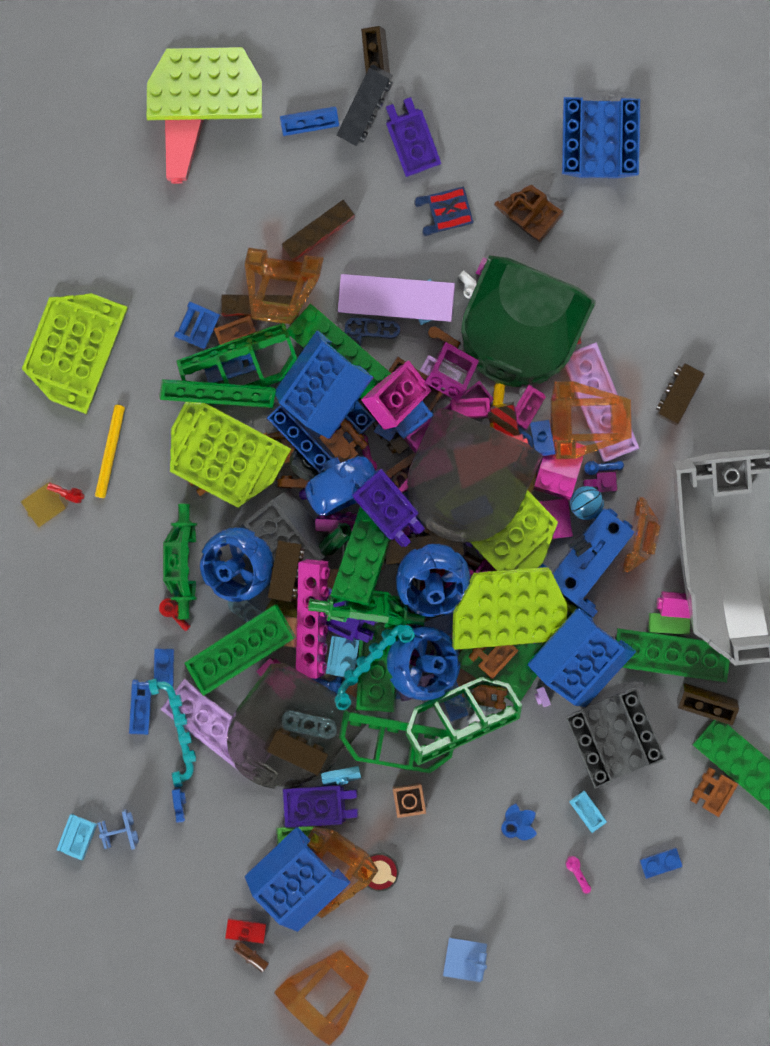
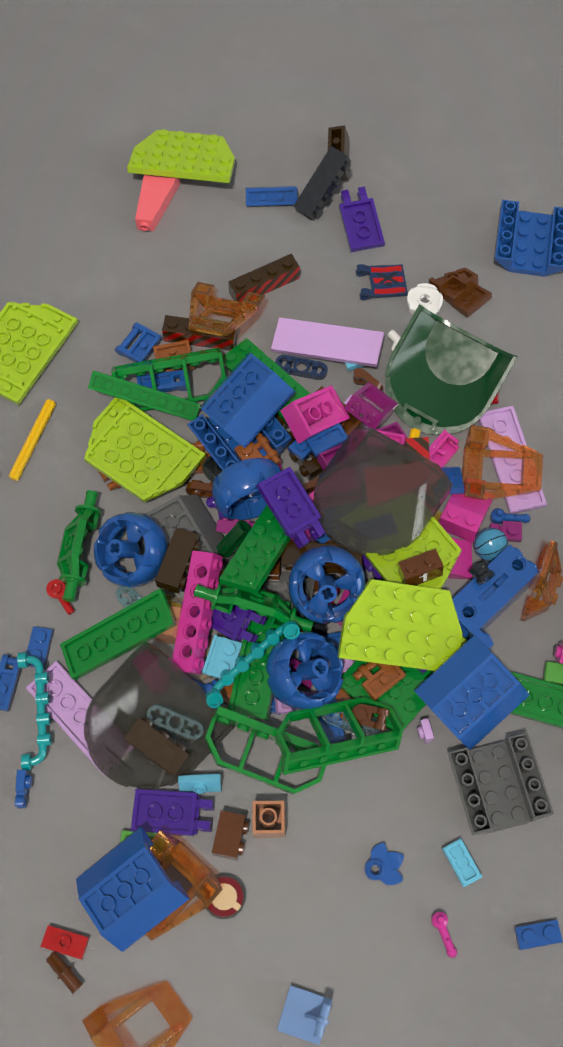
camera: 10 degrees right, 20 degrees down
(376, 818) = (229, 835): none -> reddish brown brick
(501, 223) = (424, 291): none -> white plate
(520, 551) = (420, 568): none -> reddish brown brick

